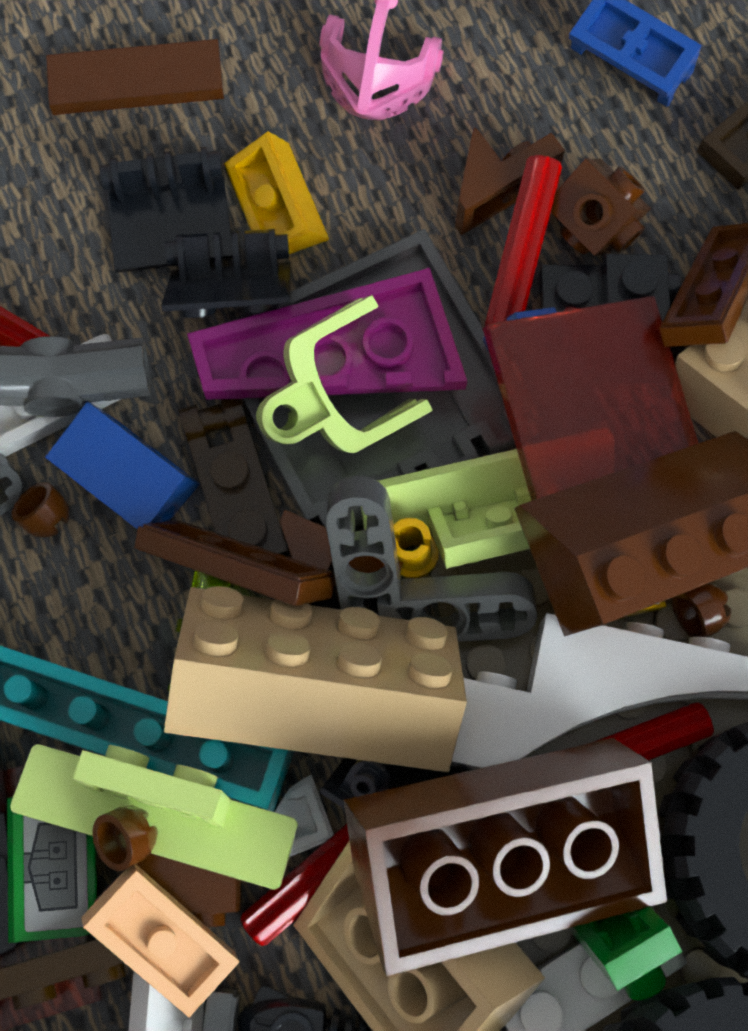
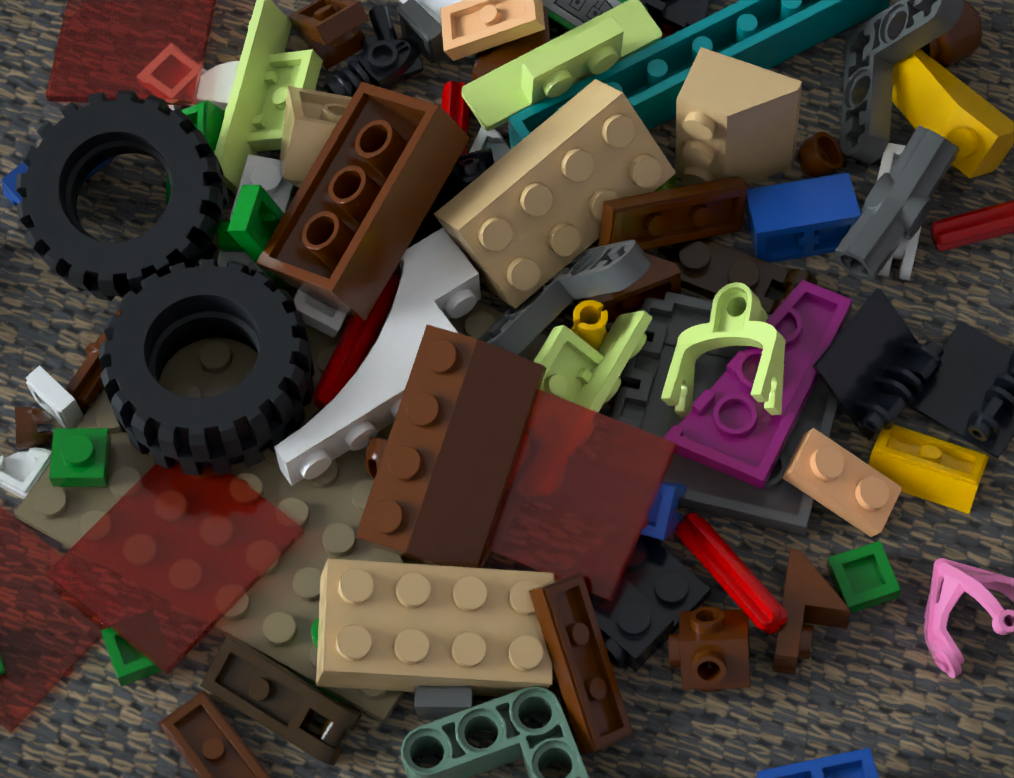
camera: 140 degrees right, 10 degrees down
(90, 577) = (734, 121): none -> tan slope
(124, 837) = (558, 27): reddish brown hinge -> none
(360, 232) = (842, 482): none -> light nougat plate
(423, 162) = (863, 577): none -> green plate

